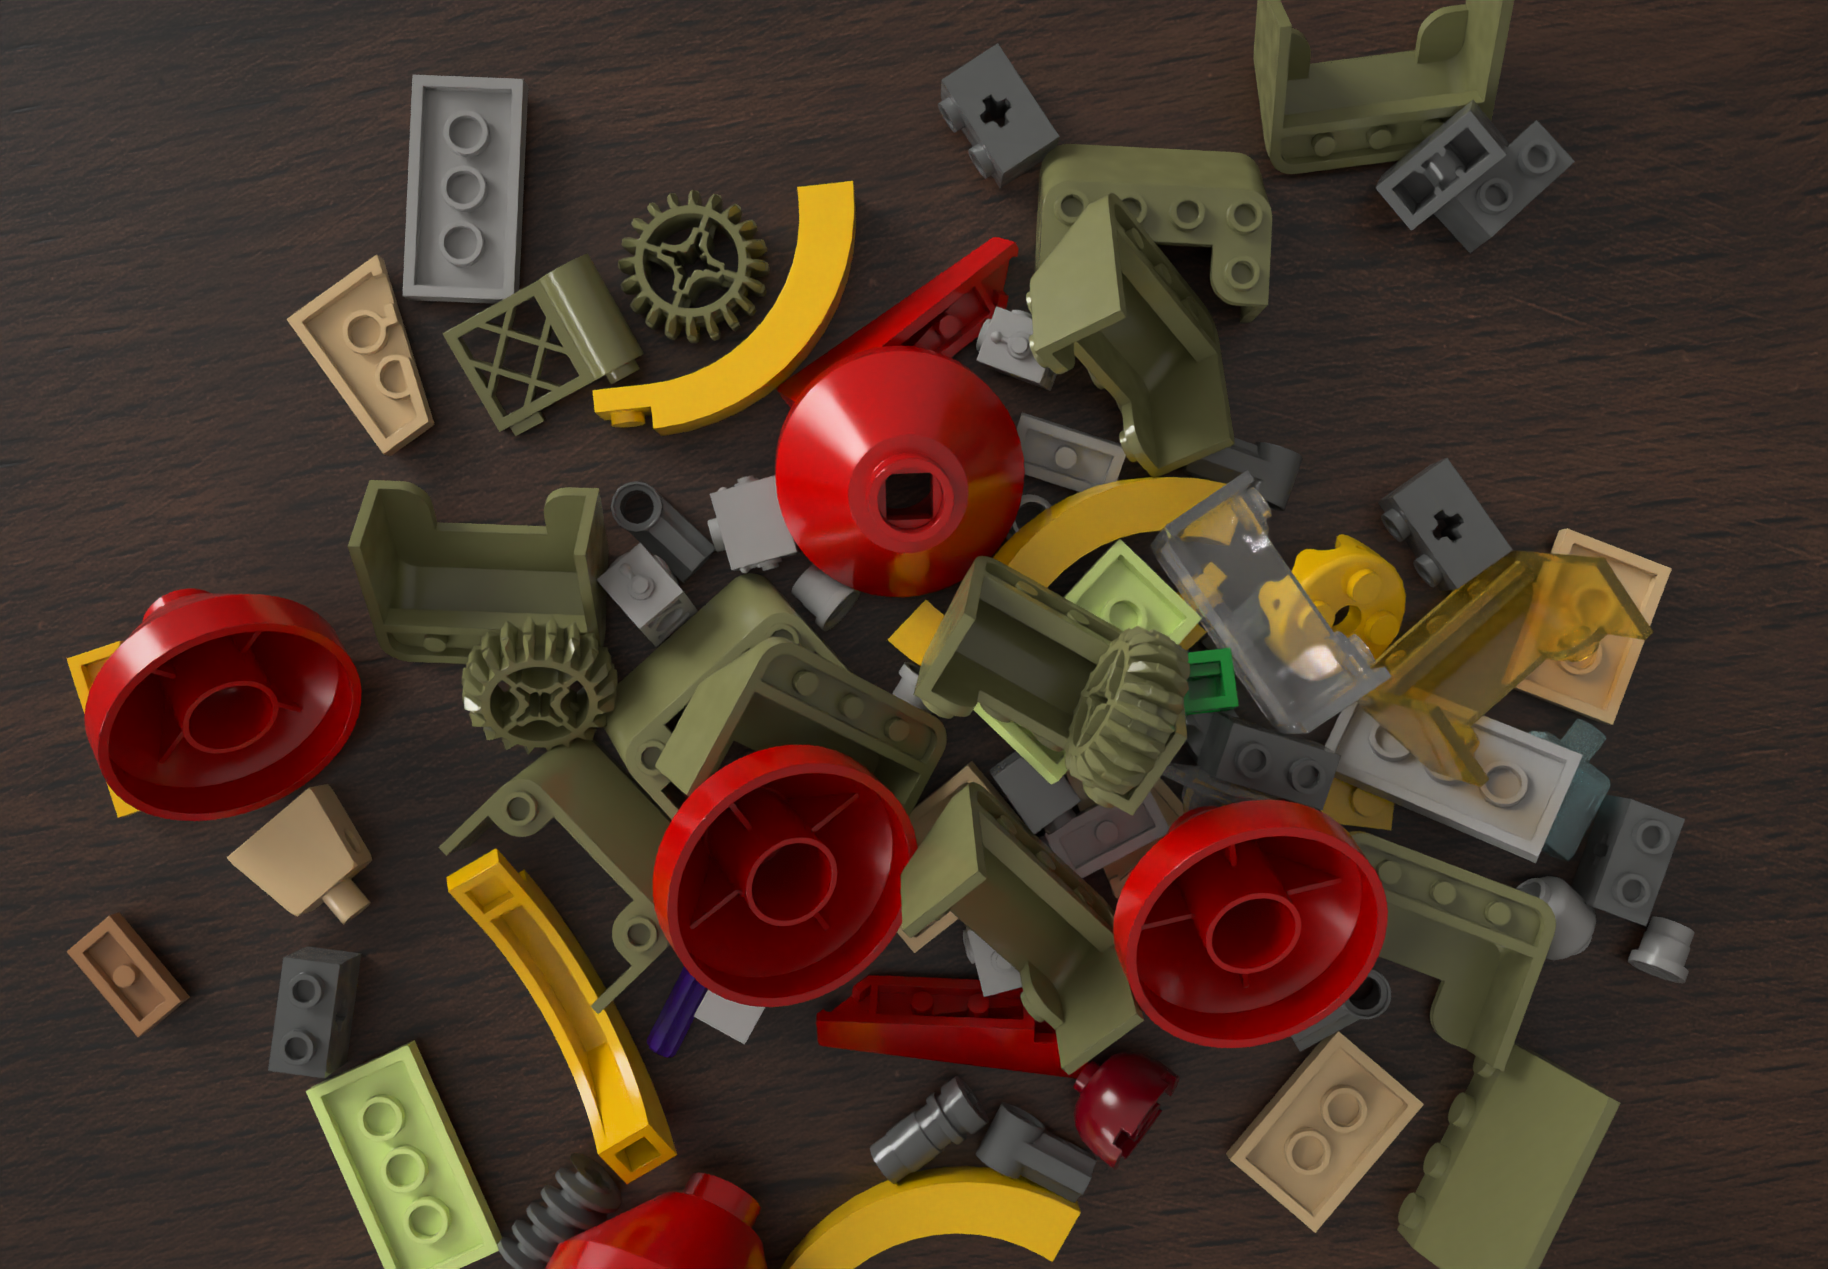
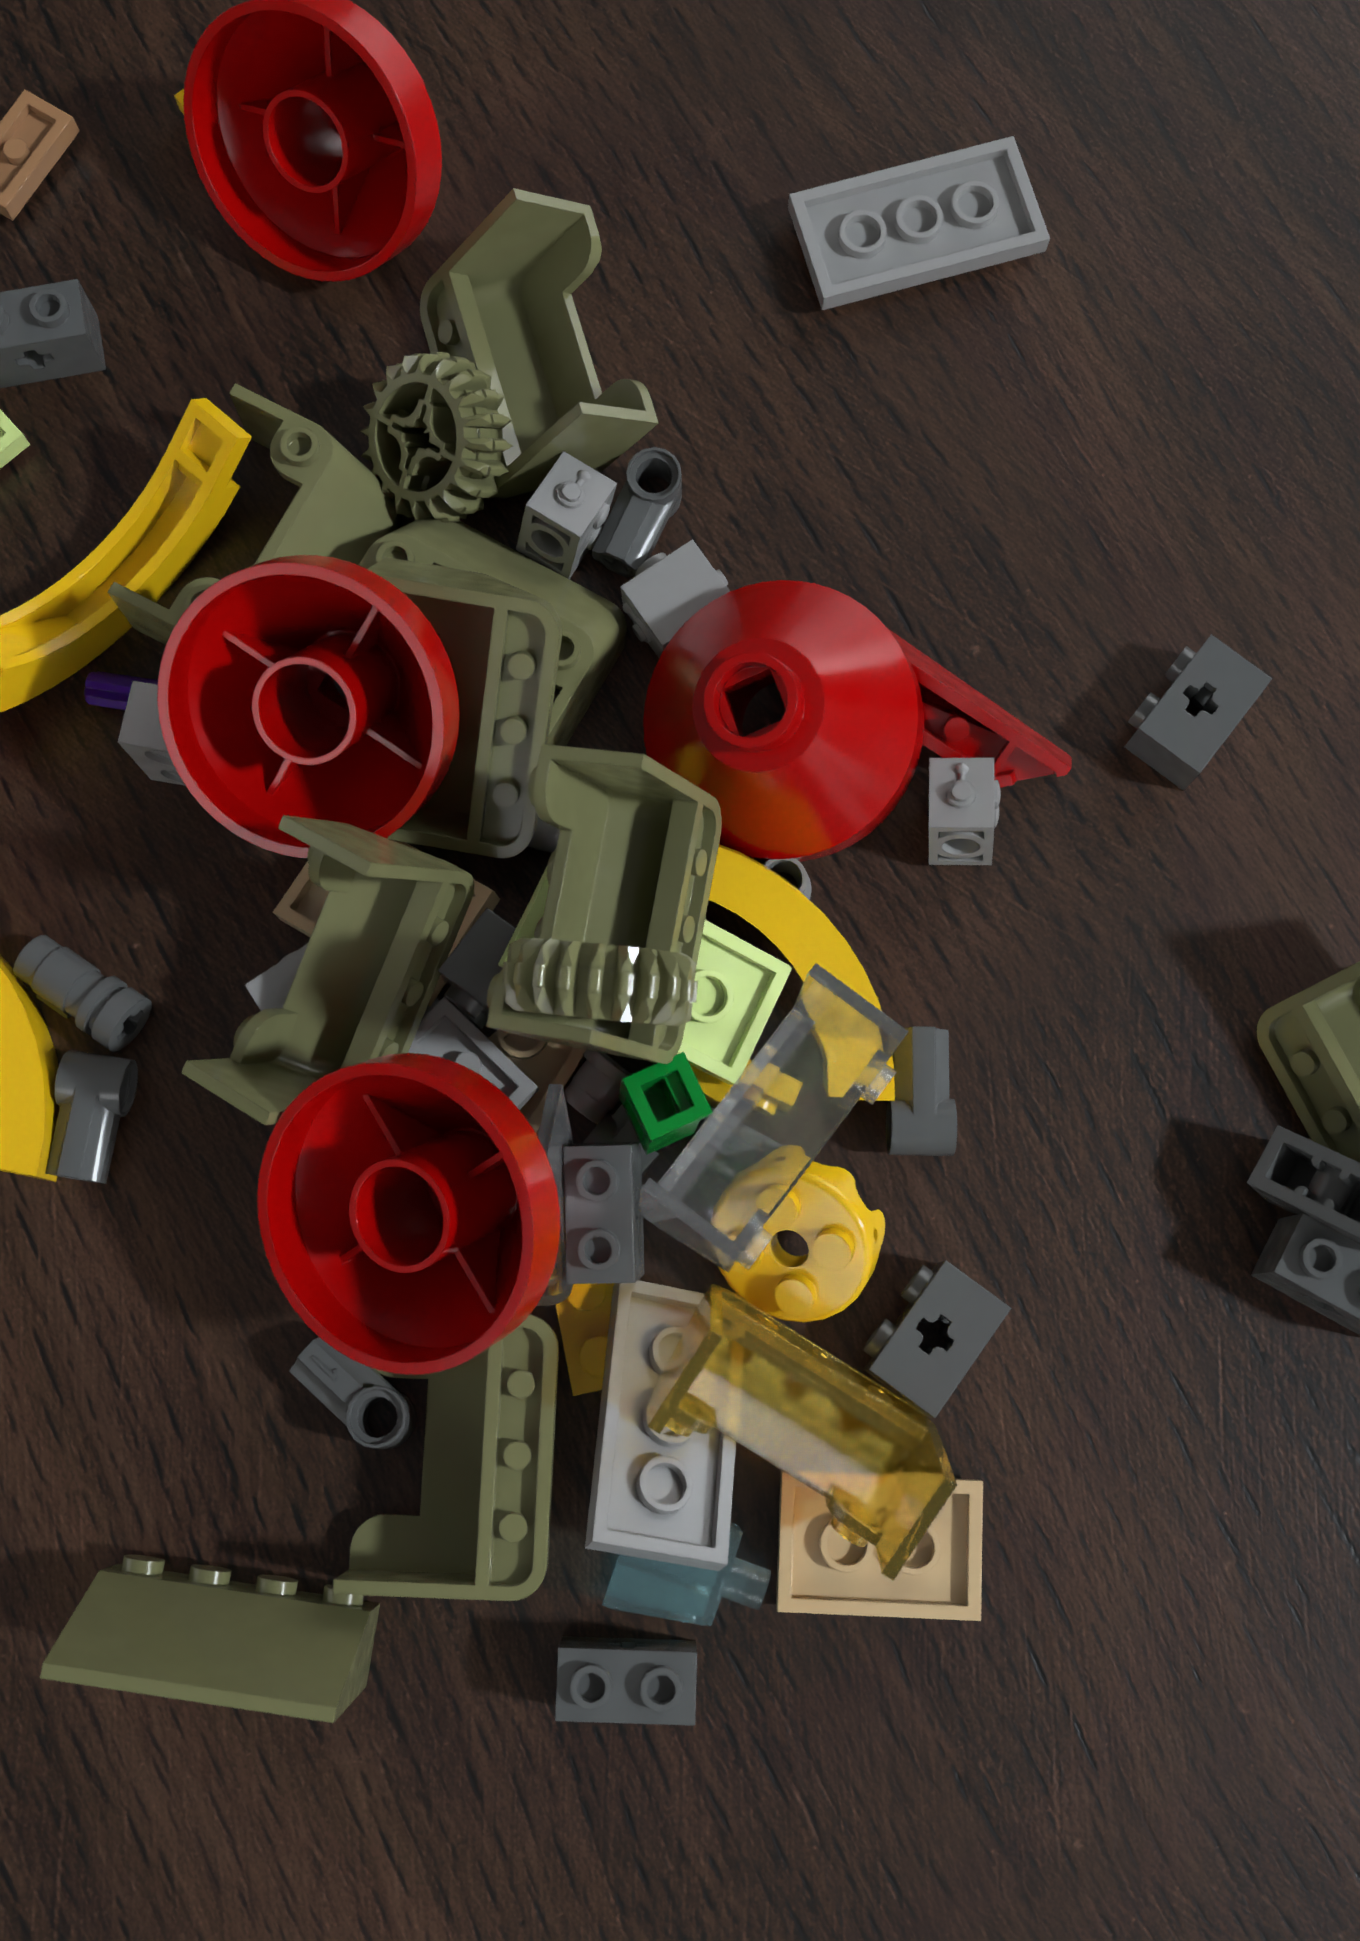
camera: 65 degrees right, 10 degrees down
(308, 856) = (190, 281): tan torso -> none
(366, 354) = (718, 183): tan wing -> none
(583, 320) = (825, 372): olive piece -> none
(651, 249) = (967, 453): olive gear -> none
(774, 347) = (882, 570): yellow arch -> none
(824, 597) = (623, 700): light grey piece -> none
(942, 1023) = (204, 972): red wedge -> none
(1067, 455) = (865, 898): light grey plate -> none
(1120, 1103) = (170, 1188): dark red cylinder -> none
(1138, 333) = (1027, 906): olive windscreen -> none
(1178, 200) = (1173, 894): olive windscreen -> none
(1324, 1129) = (208, 1432): tan plate -> none
(1573, 917) = (532, 1628): light grey head -> none
(1664, 950) = (536, 1767): light grey piece -> none

